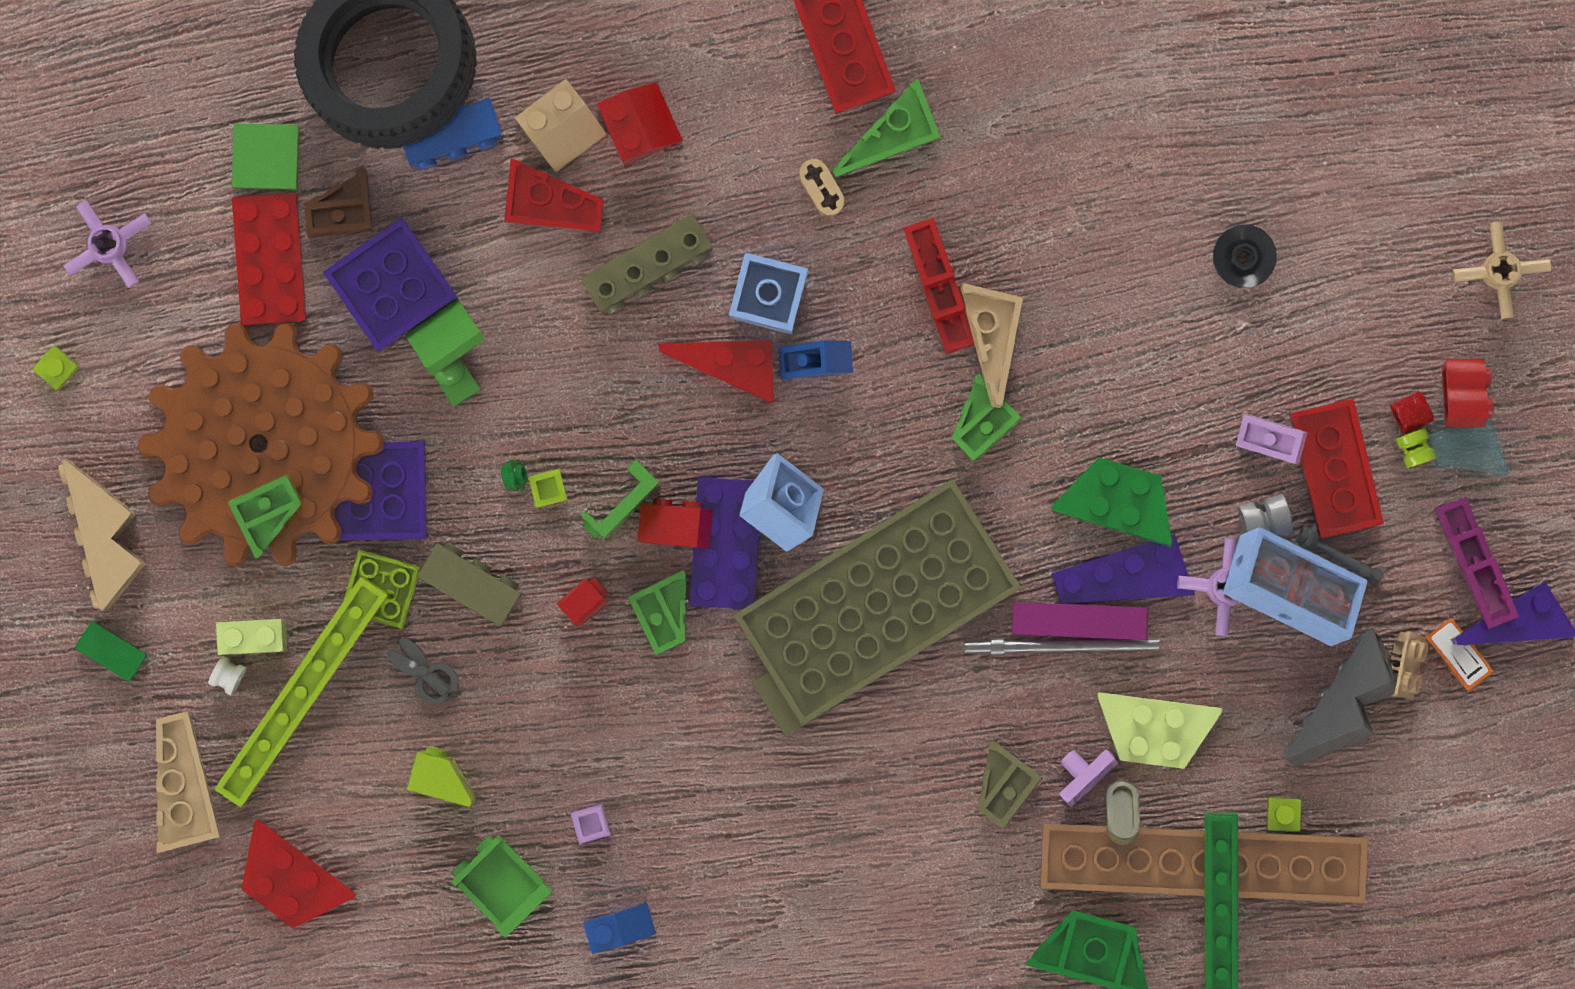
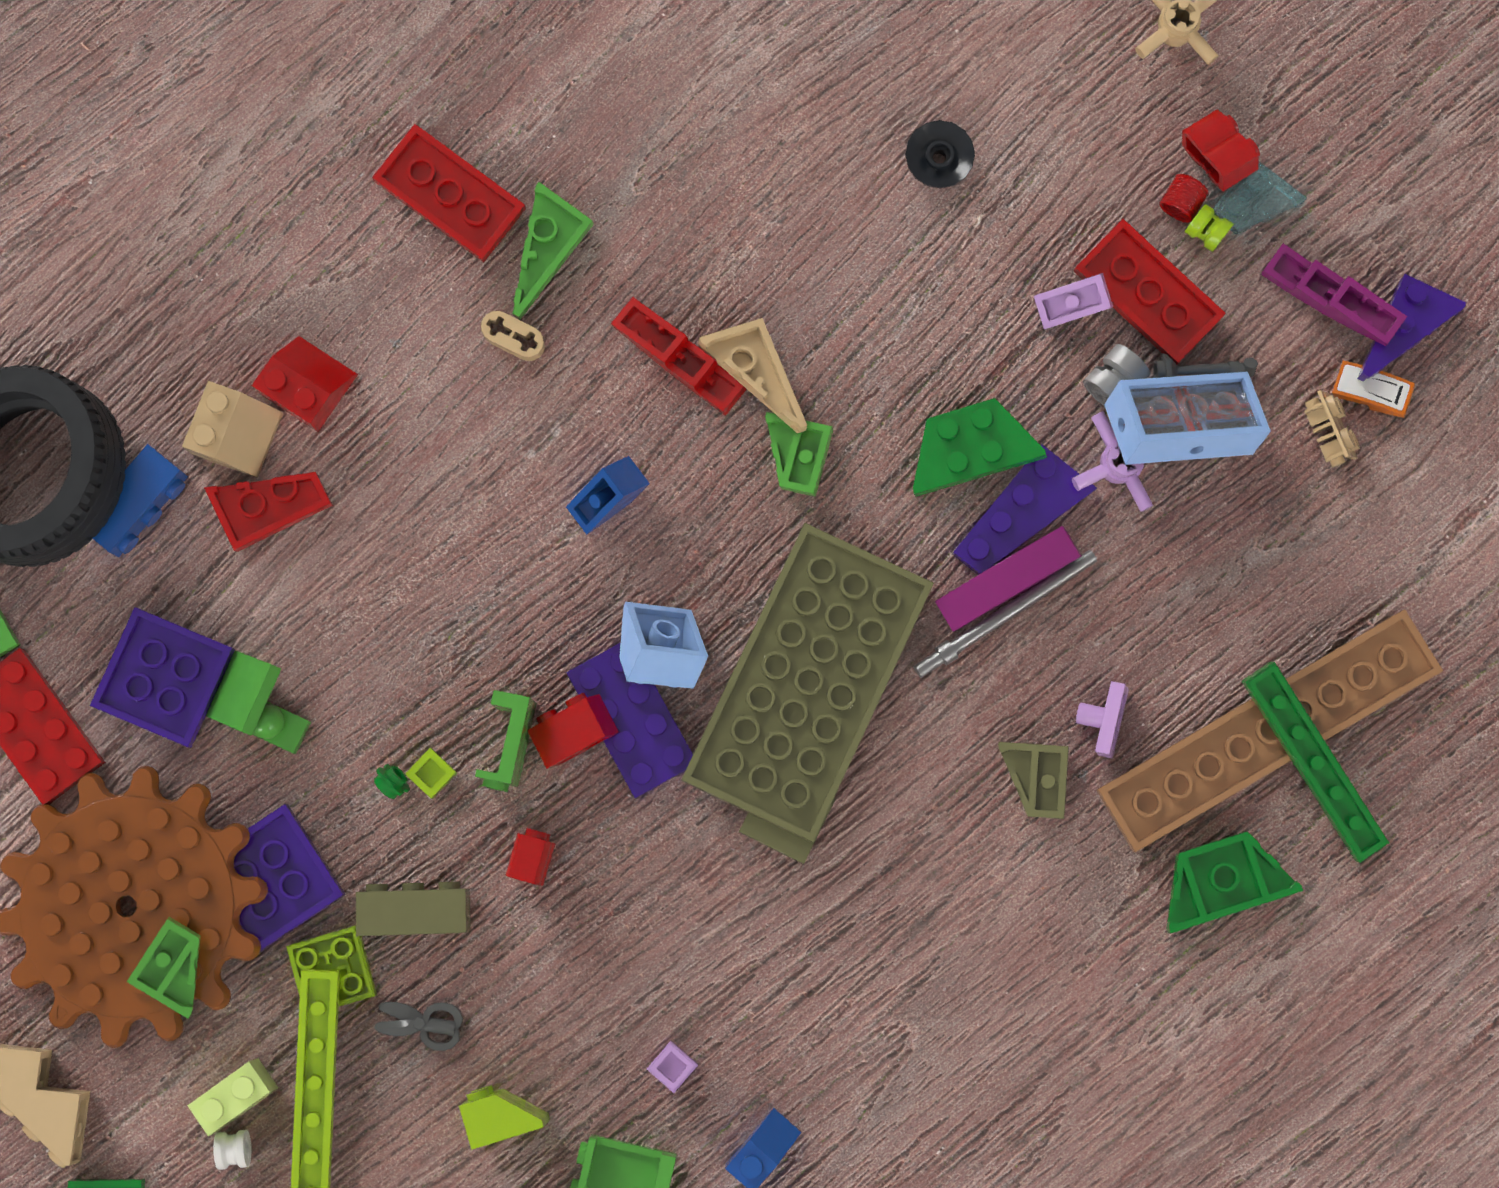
camera: 30 degrees left, 5 degrees down
(341, 209) = (72, 636): reddish brown wing -> none
(647, 264) = (394, 506): olive brick -> none
(663, 612) = (613, 820): bright green wing -> none
(738, 363) = (537, 544): red wing -> none
(768, 293) = (523, 460): light blue brick -> none
(1122, 812) = (1164, 731): olive tile -> none
(1156, 729) = (1143, 635): yellowish green wing -> none
(1283, 814) = (1312, 638): lime plate -> none
(1342, 713) = (1303, 510): dark grey slope -> none

